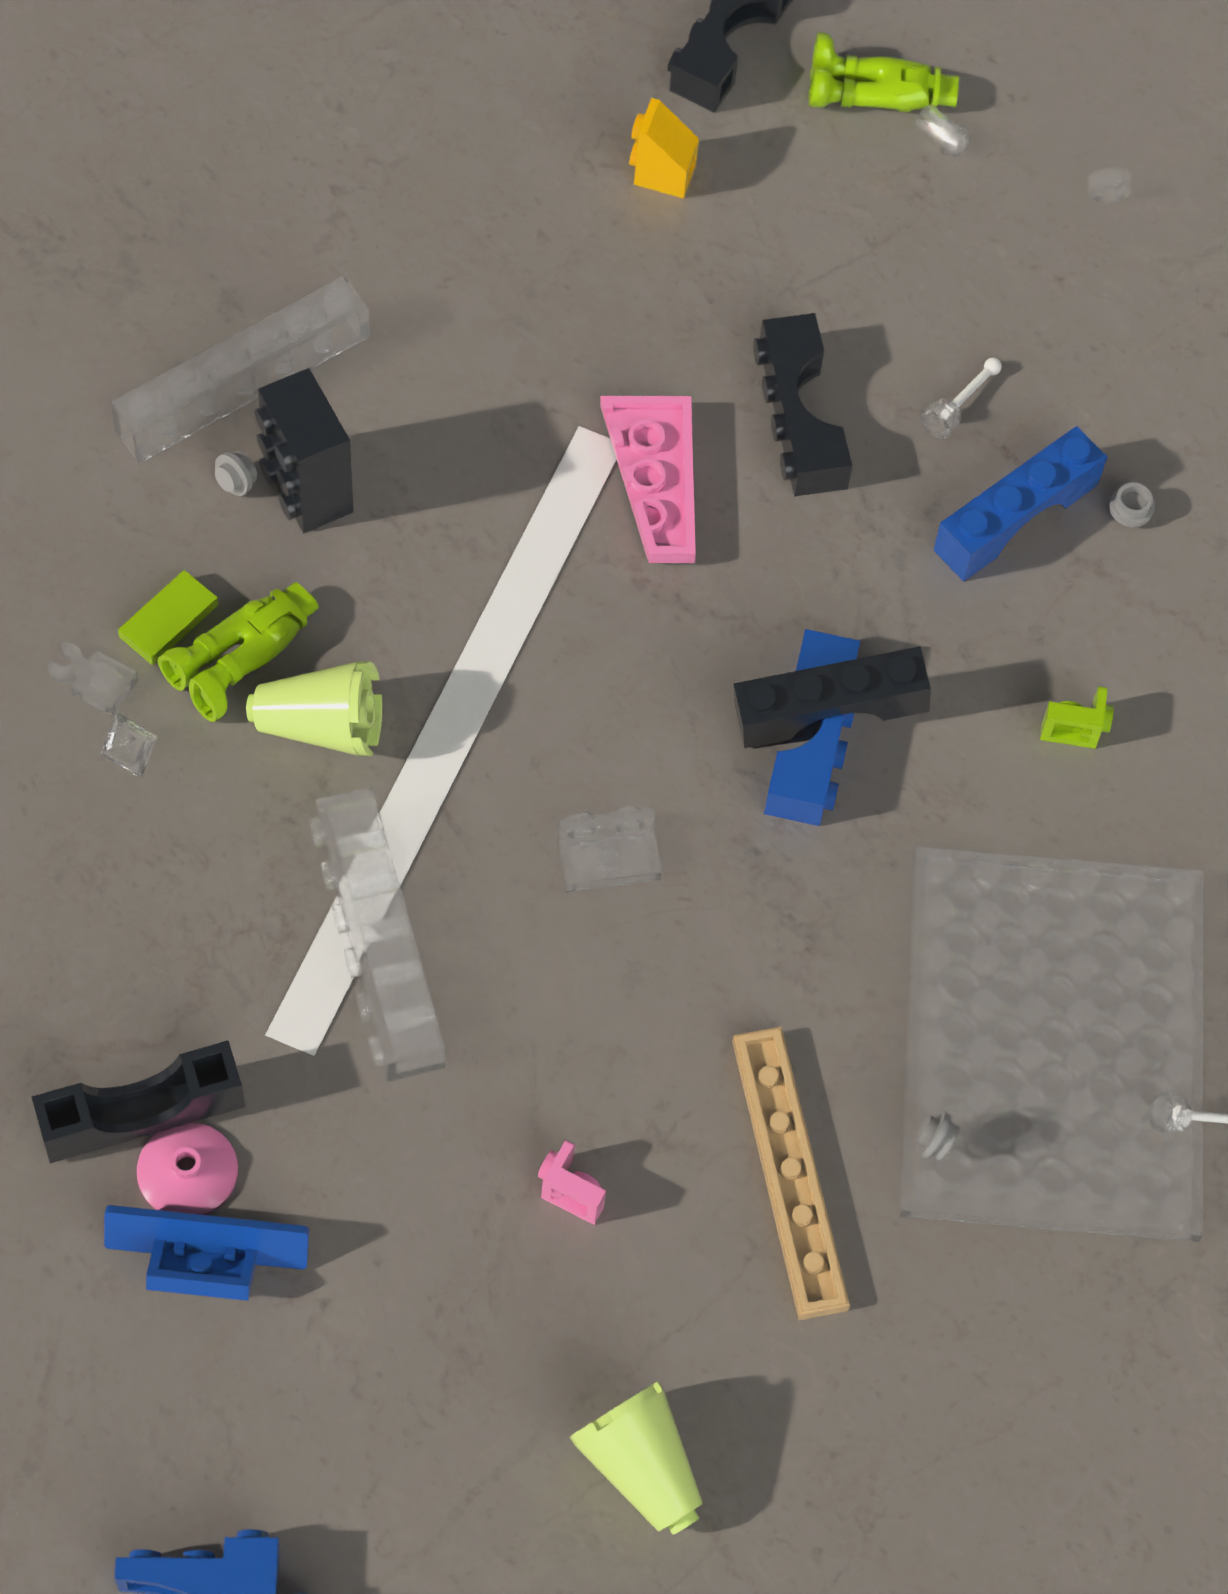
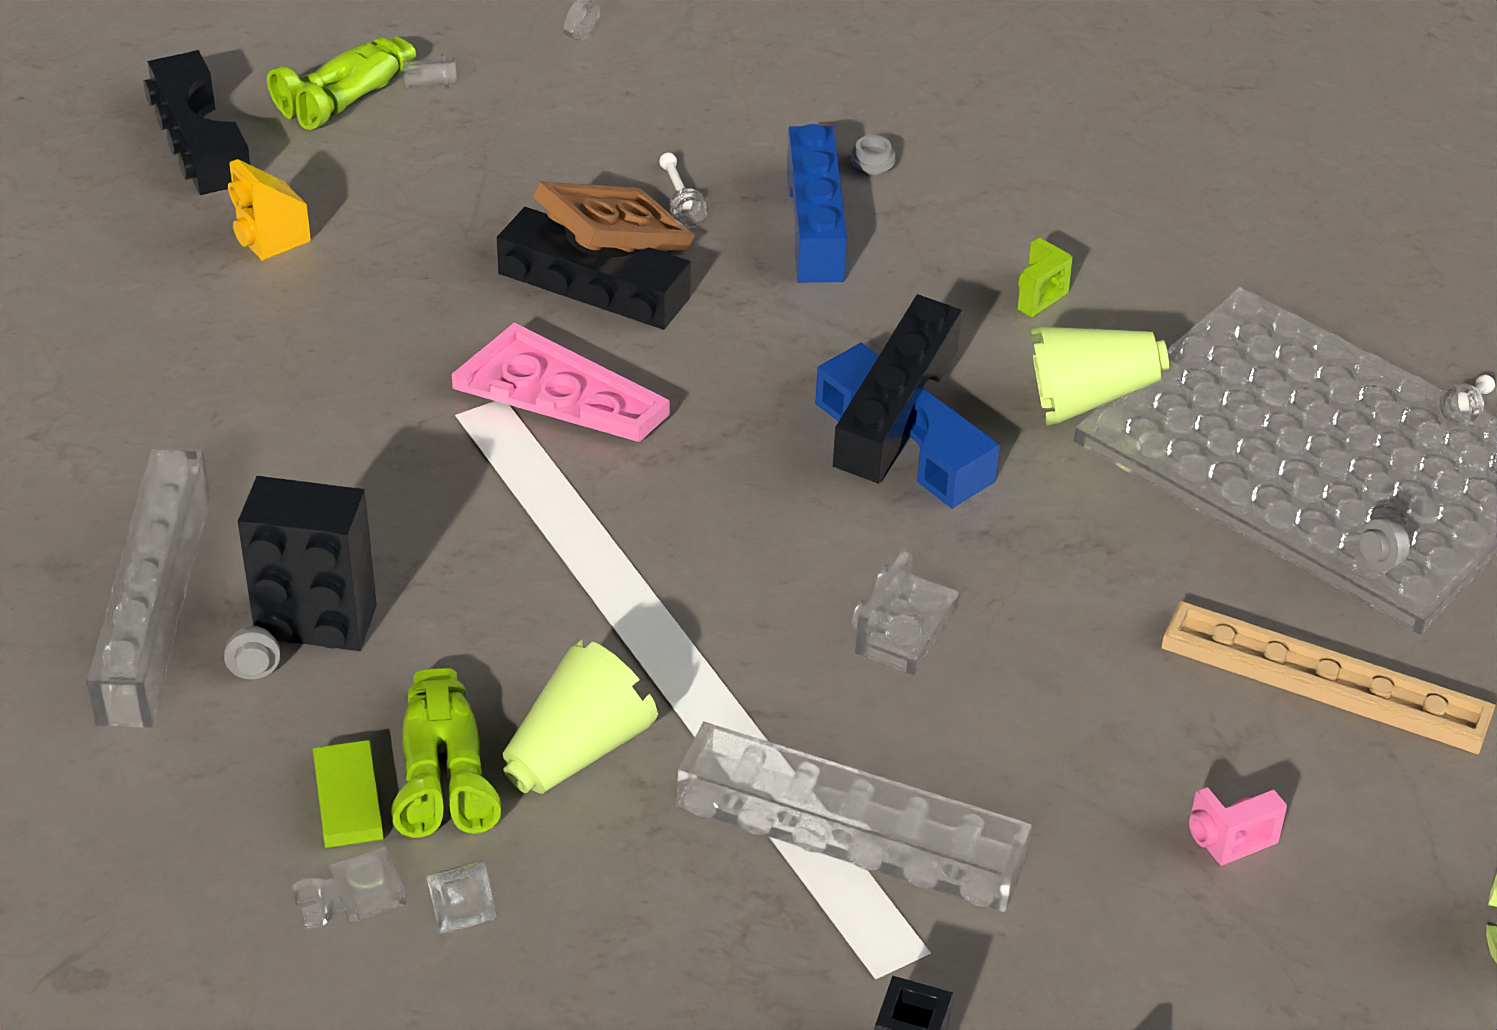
camera: 50 degrees left, 20 degrees down
(860, 379) = (613, 217): none -> medium nougat plate
(963, 814) = (1092, 367): none -> yellowish green cone

